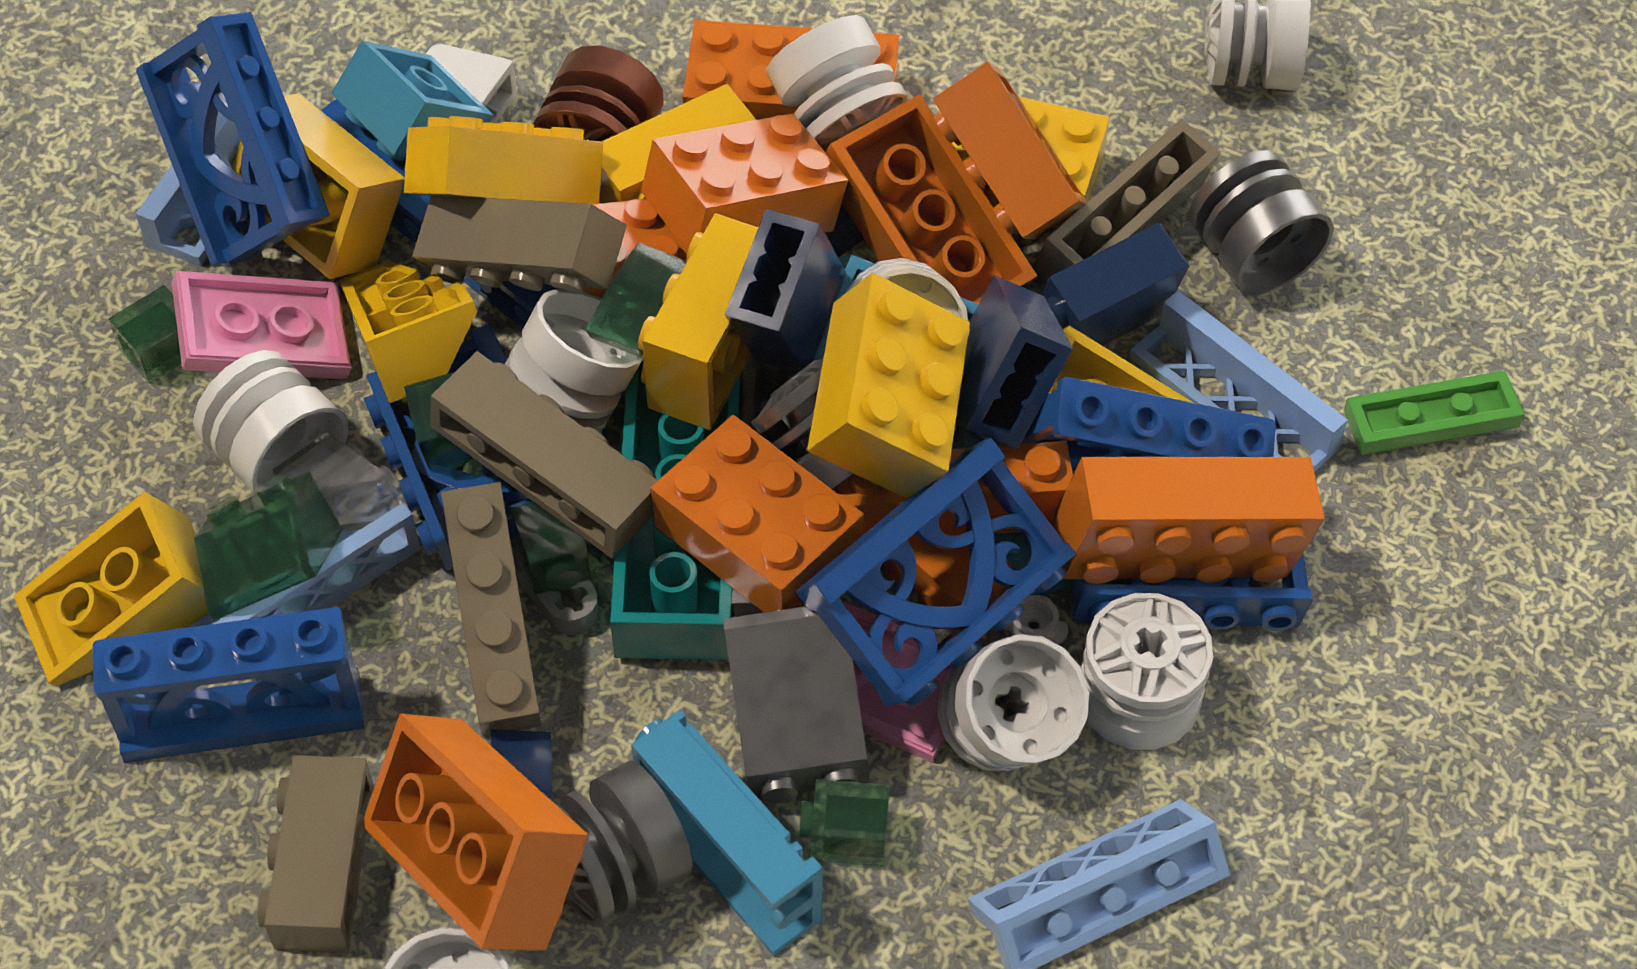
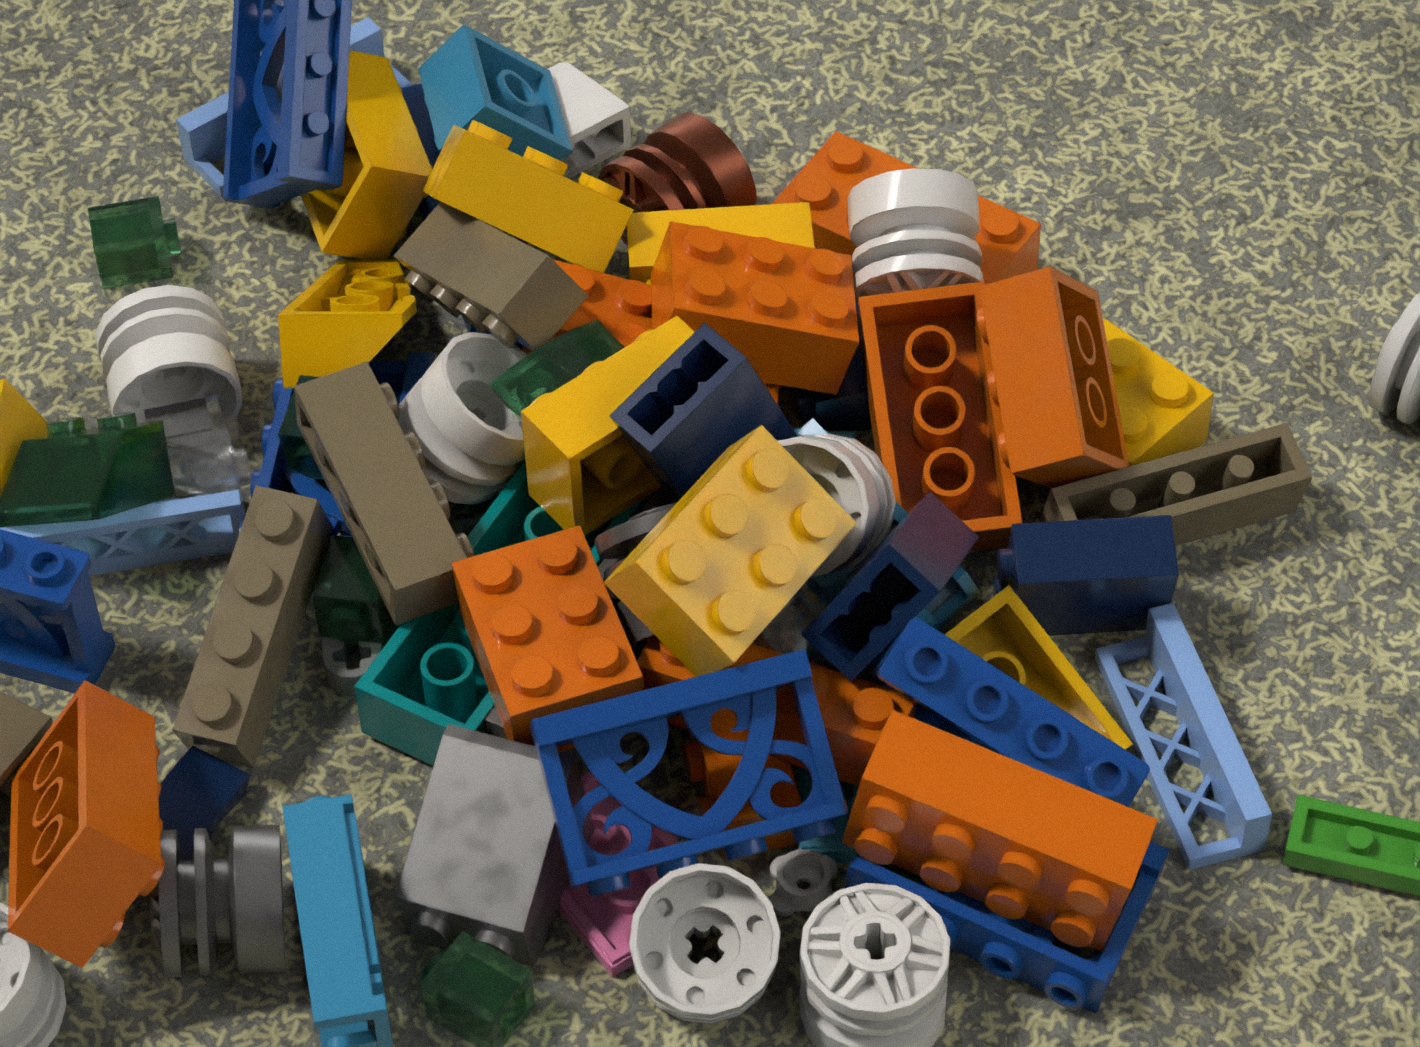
camera: 30 degrees right, 5 degrees down
(239, 315) = (226, 258): bright pink tile -> none
(1260, 222) = (1313, 568): flat silver wheel -> none

